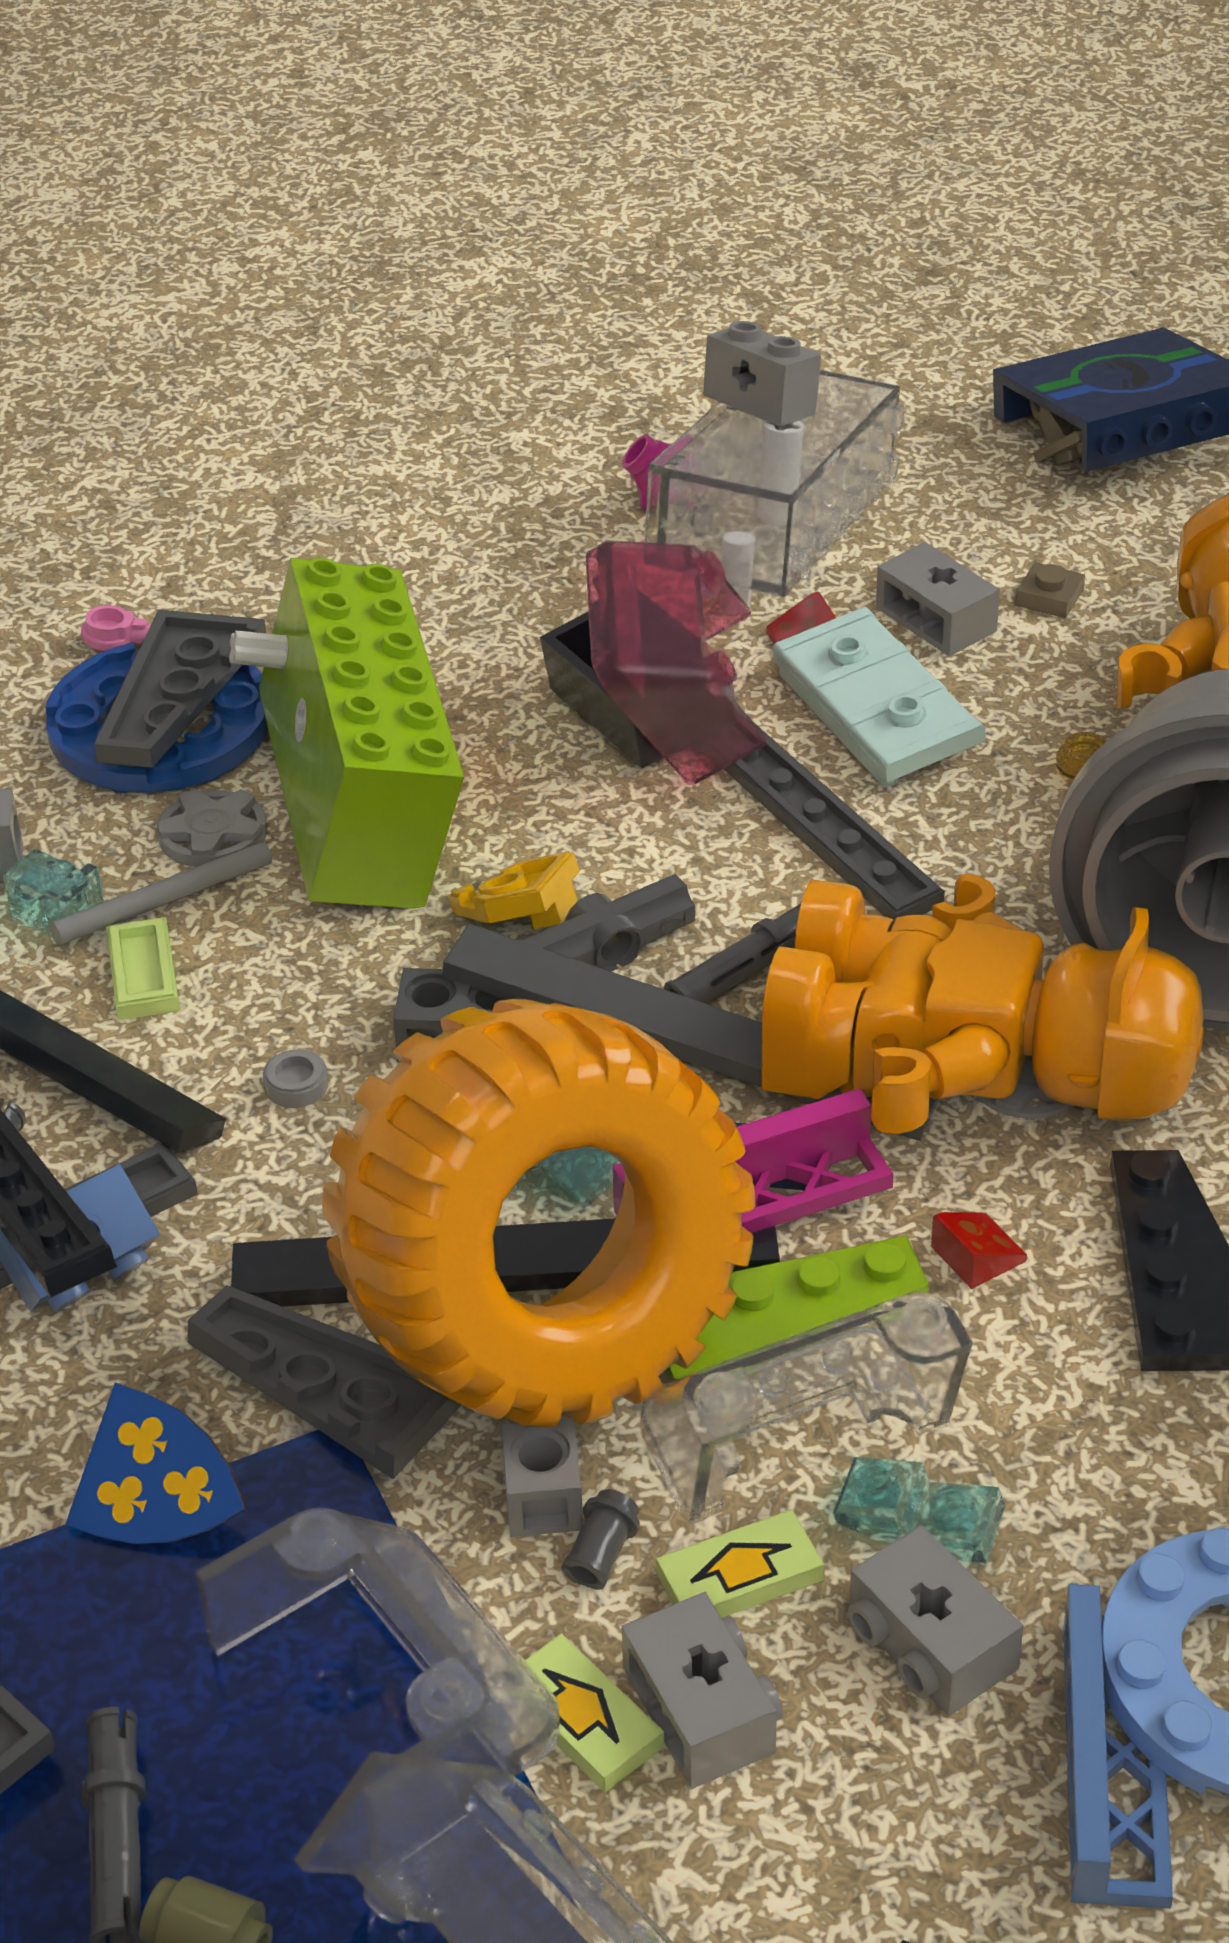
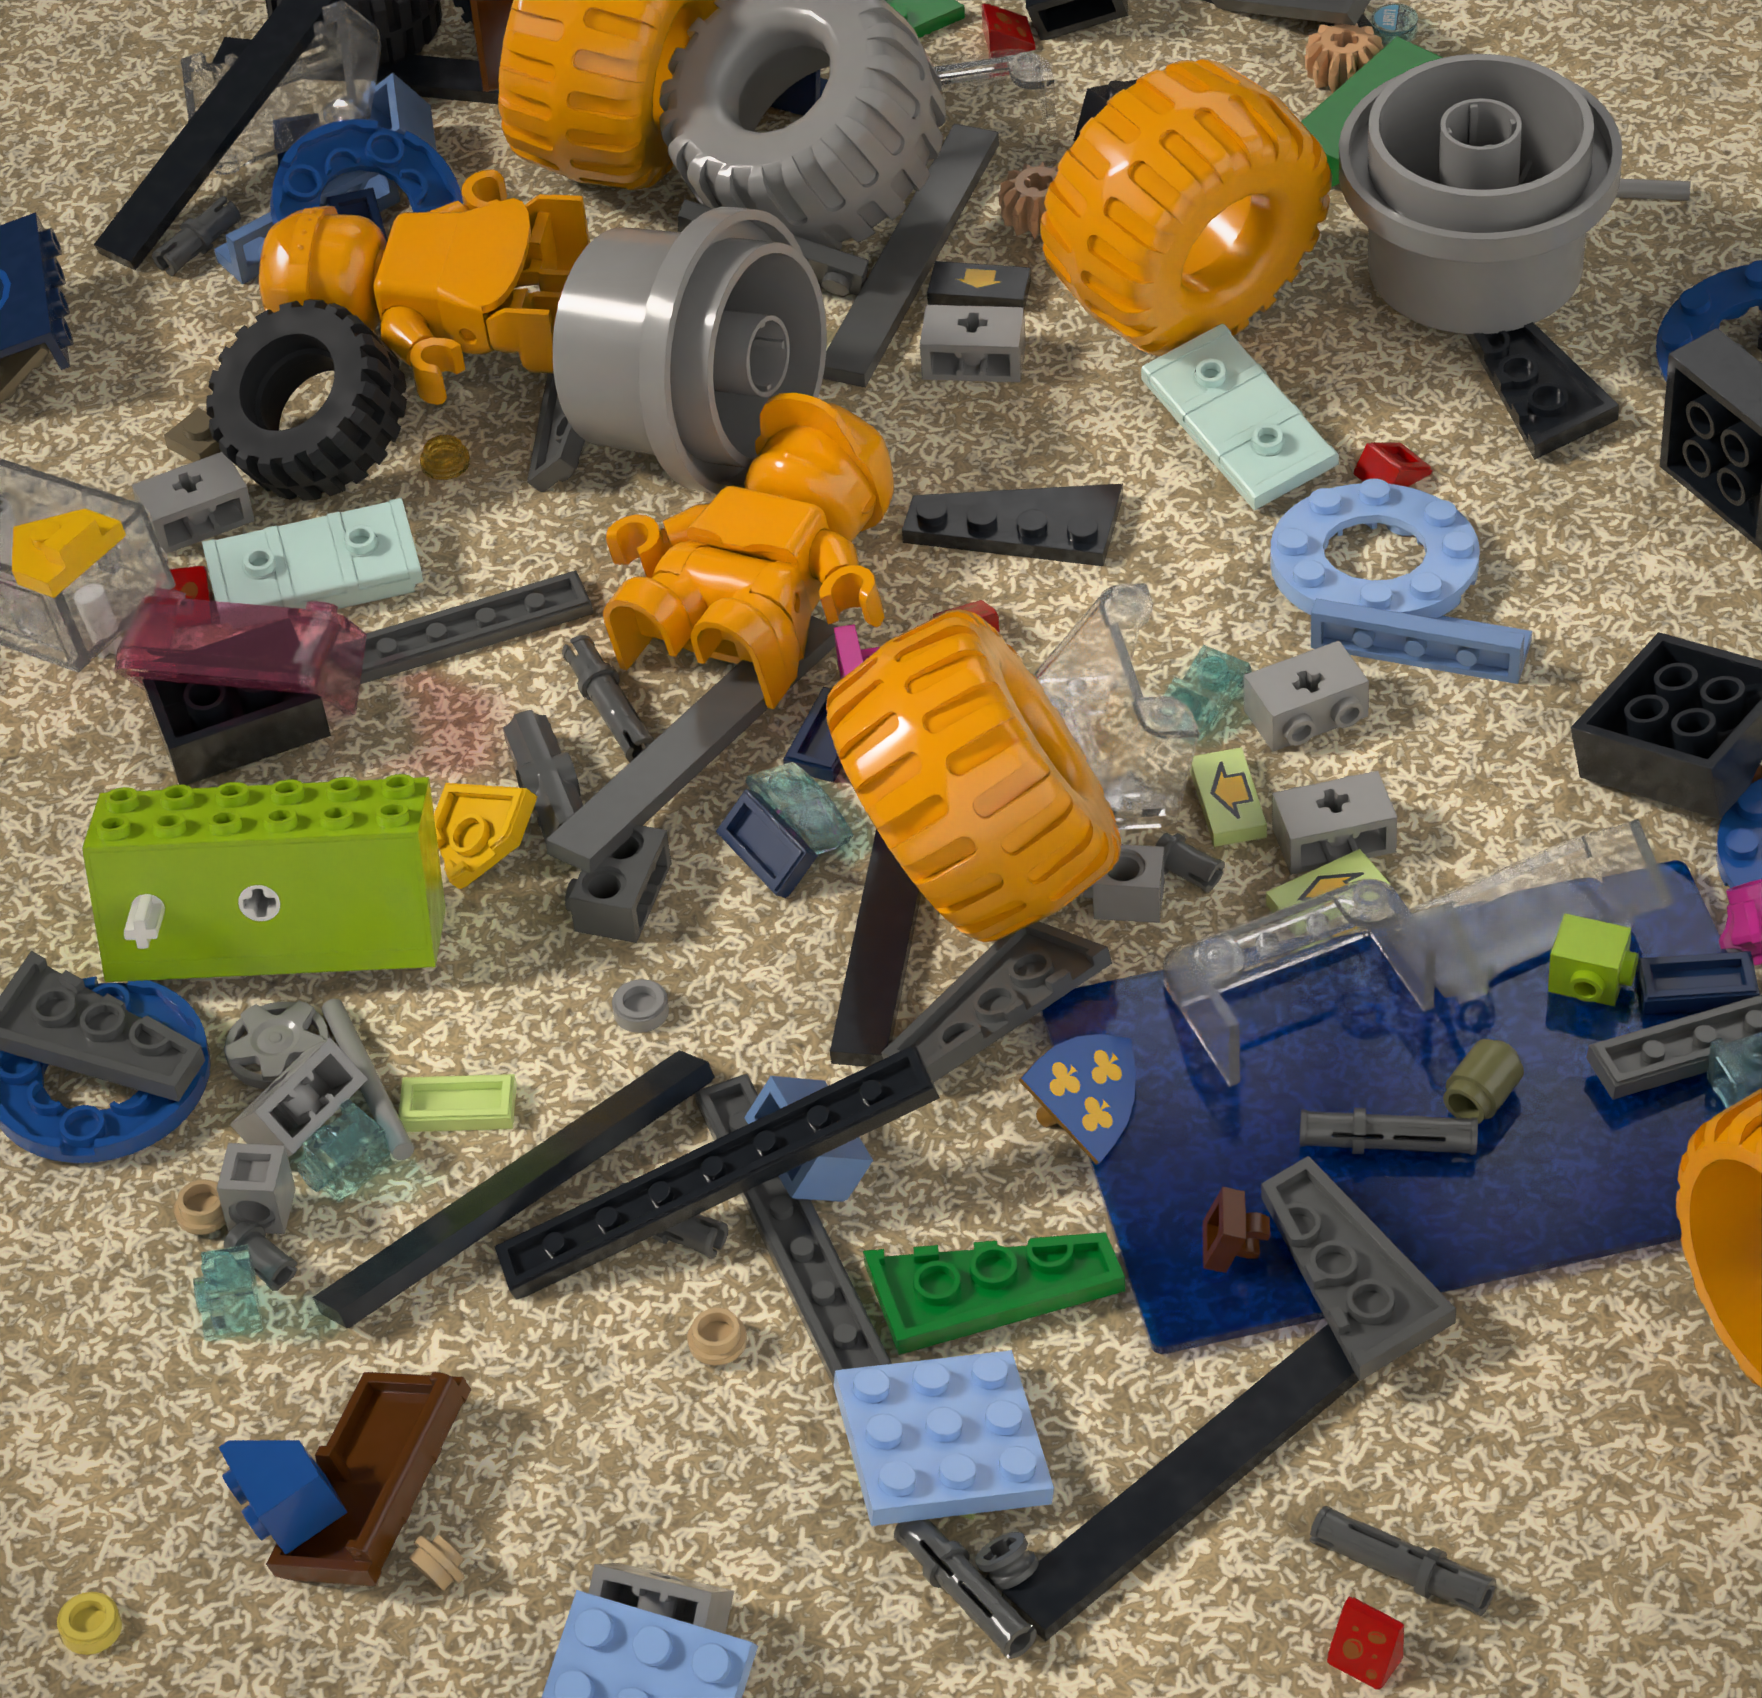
camera: 75 degrees left, 5 degrees up
(103, 837) = (300, 1098): none -> light grey brick
(700, 455) = (61, 548): none -> yellow plate
(1068, 607) = (271, 364): none -> black tyre

